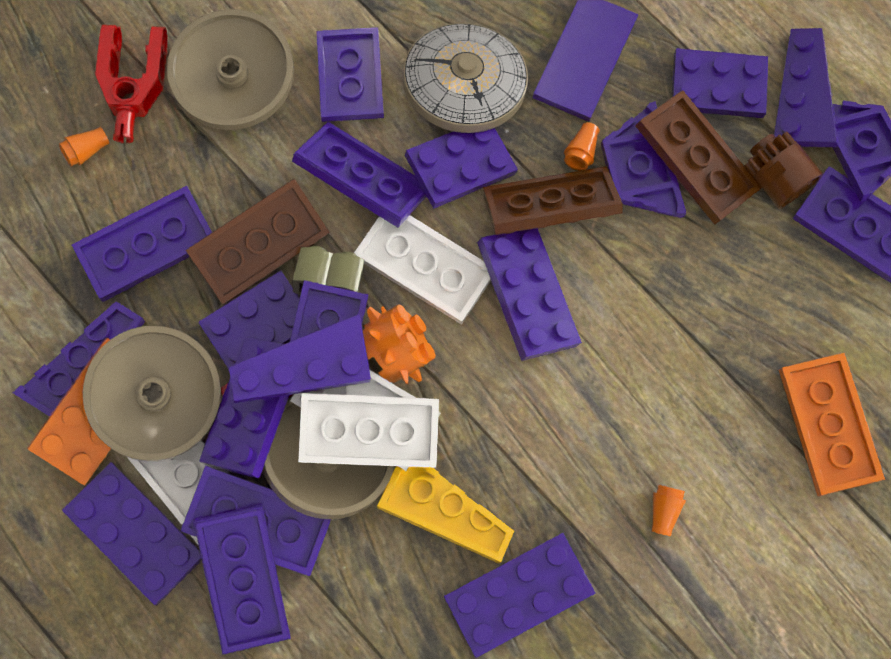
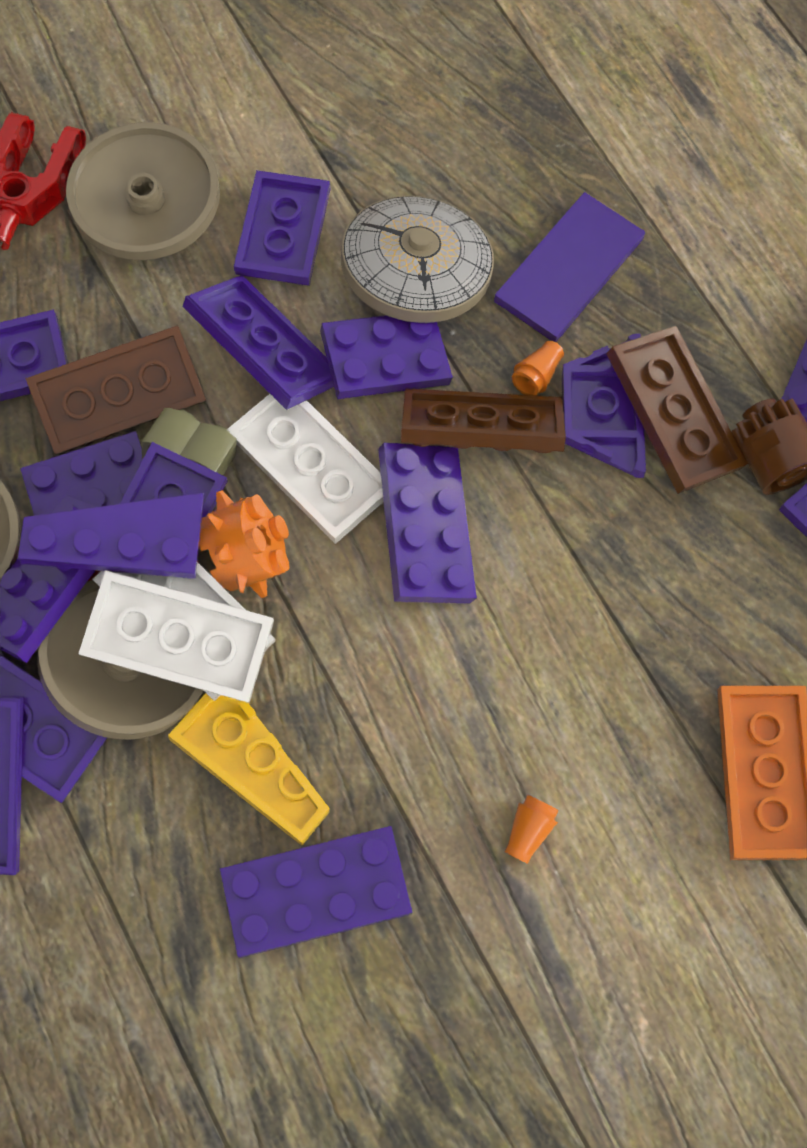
camera: 15 degrees right, 5 degrees down
(722, 81) = (730, 331): dark purple plate -> none

